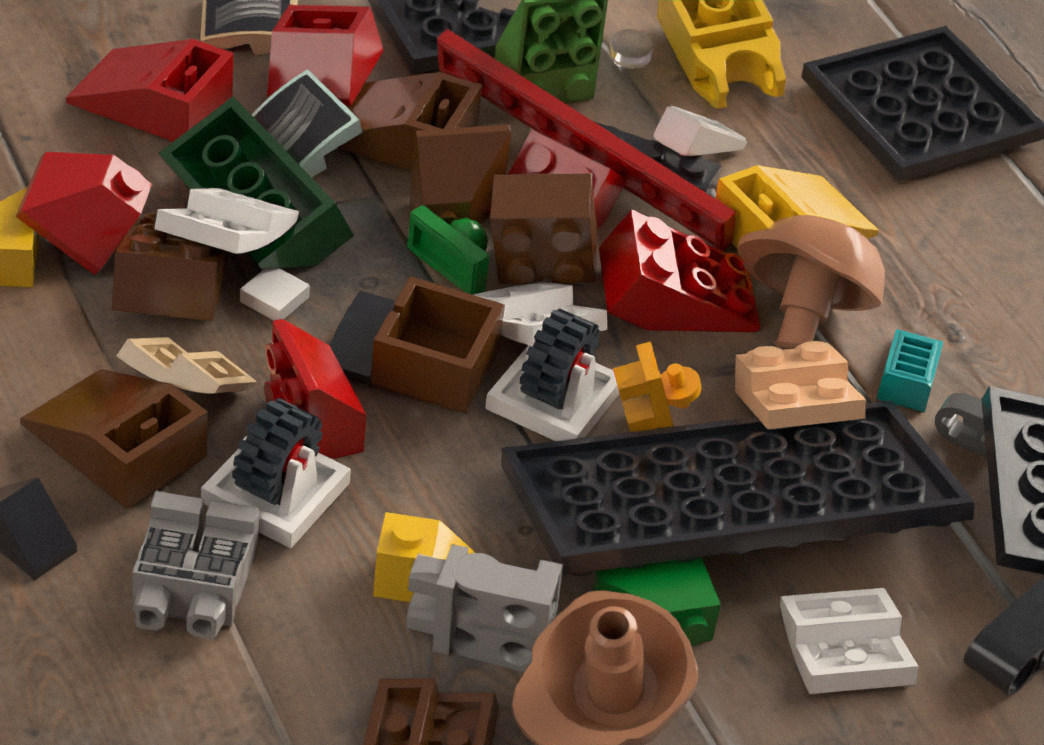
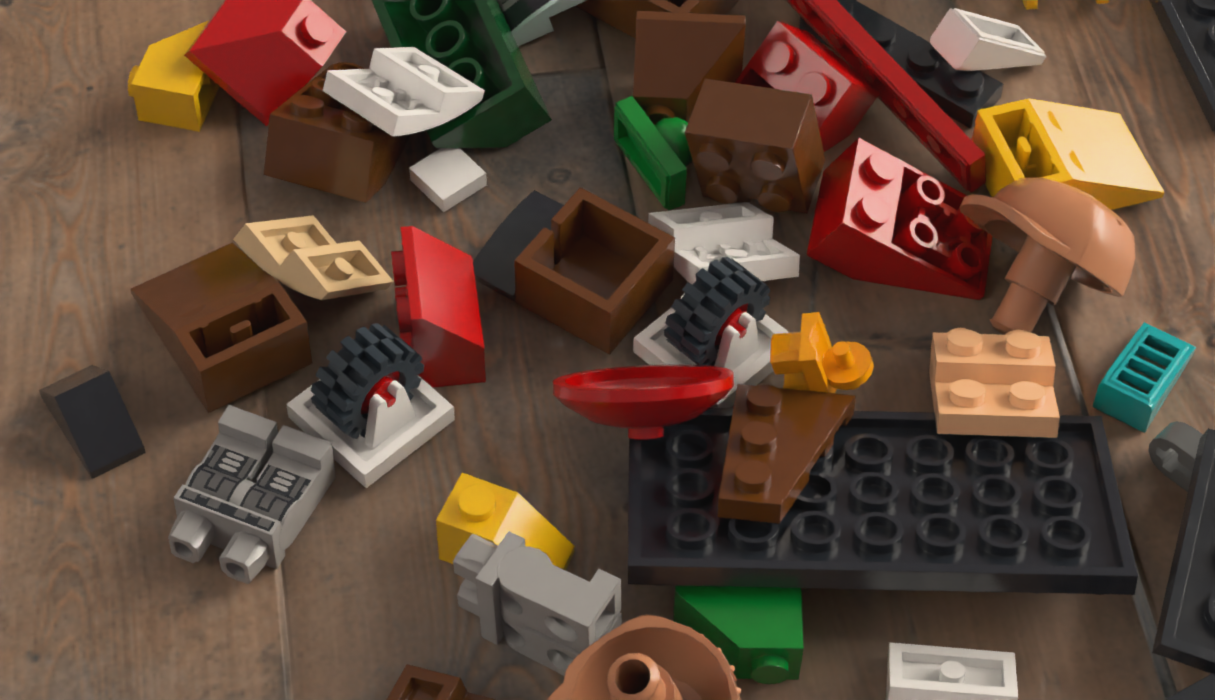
camera: 20 degrees right, 10 degrees up
(523, 433) = (644, 395): none -> red dish
(641, 455) = (774, 446): none -> reddish brown wing

